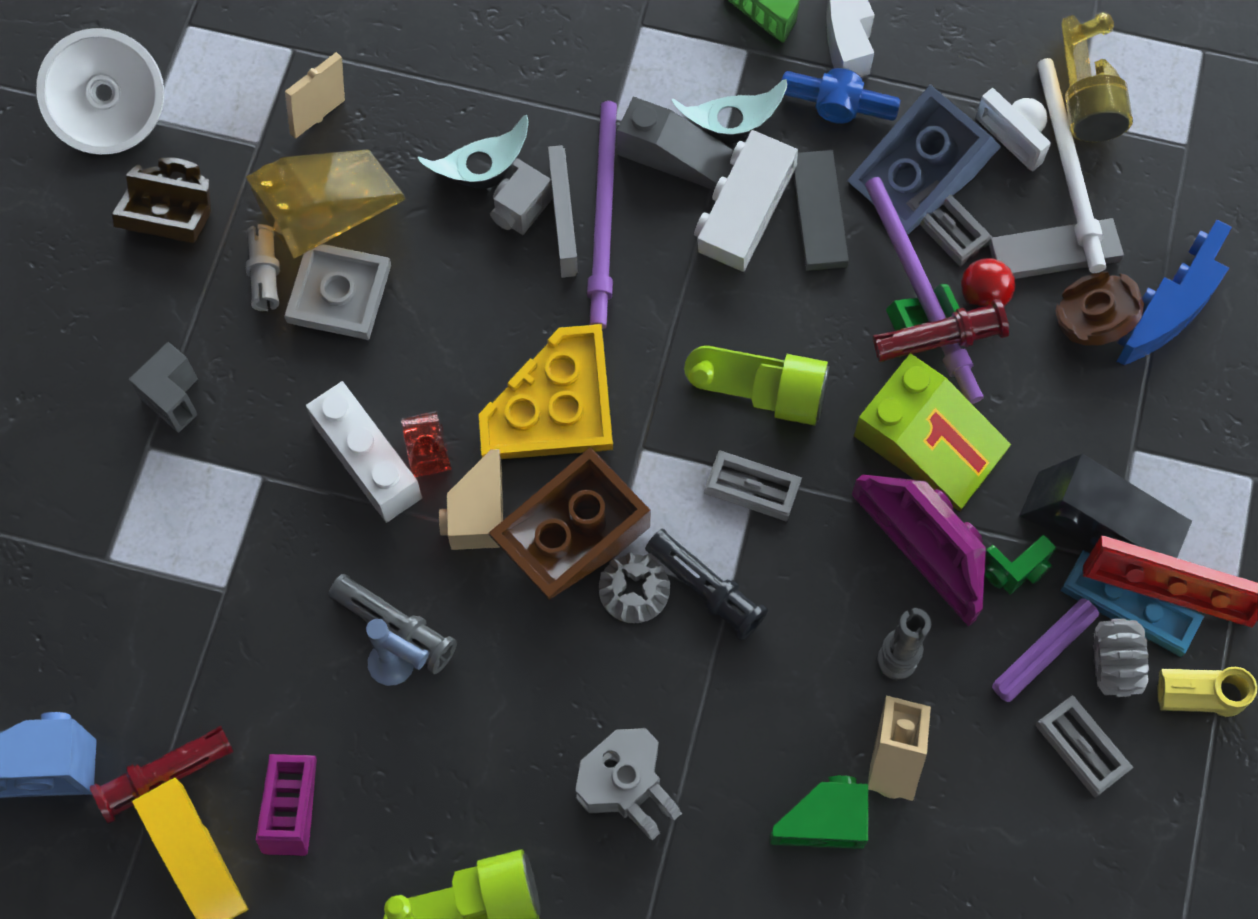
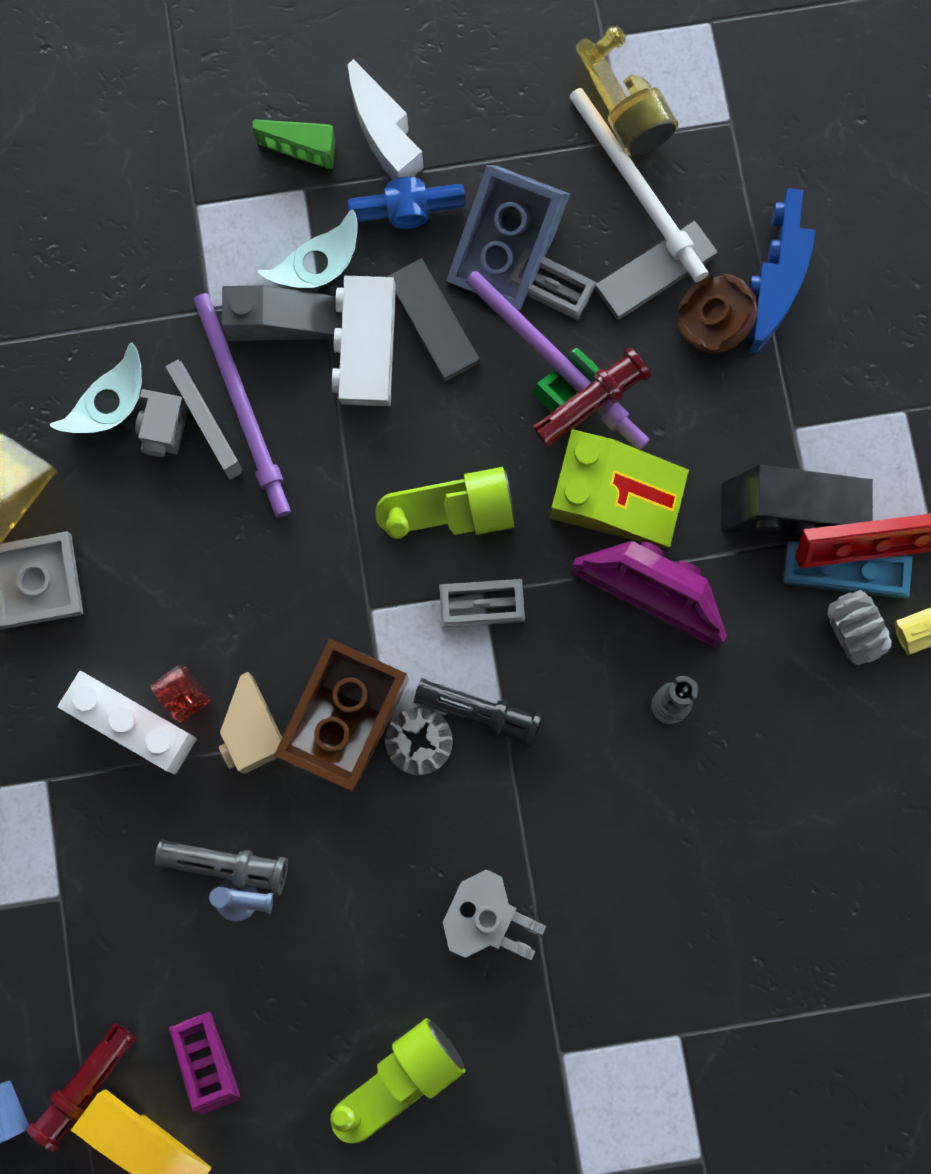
camera: 20 degrees left, 10 degrees up
(553, 401) = (274, 602): yellow plate -> none
(827, 817) = (669, 872): green slope -> none
(899, 748) = (705, 786): tan slope -> none
(987, 281) = (611, 331): red piece -> none
(1016, 126) = (576, 167): white tile -> none
(1029, 565) = (749, 576): green bracket -> none
(1045, 650) = (791, 644): medium lavender axle -> none
(1071, 757) = (887, 732): light grey tile -> none

